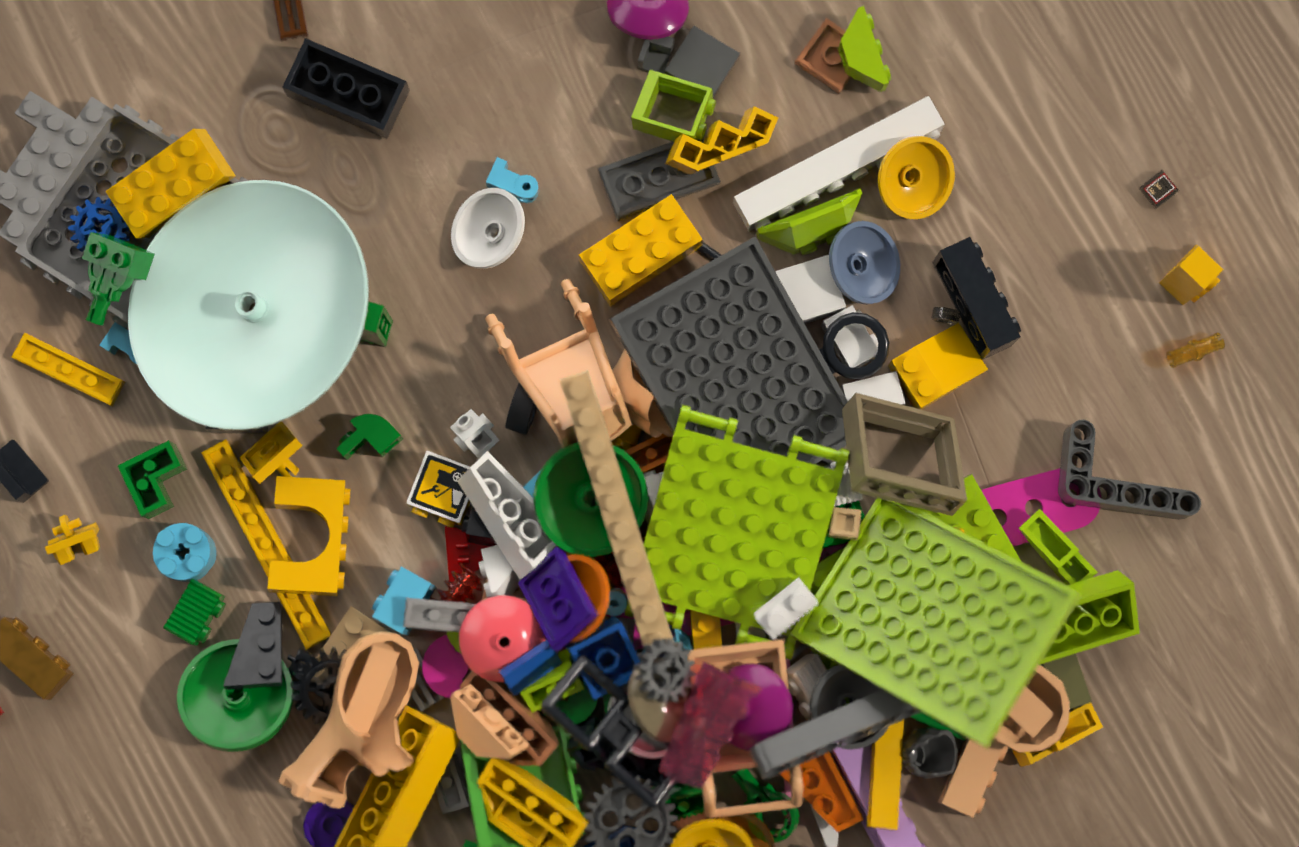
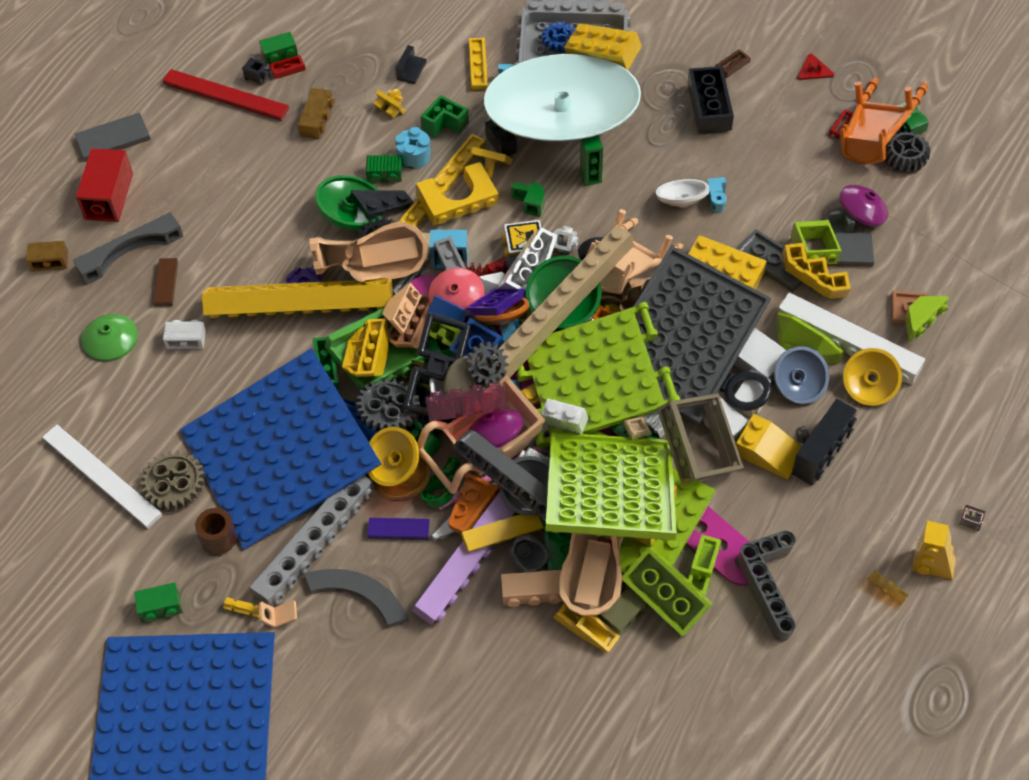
camera: 65 degrees right, 25 degrees down
(112, 271) = (543, 41): green brick -> none

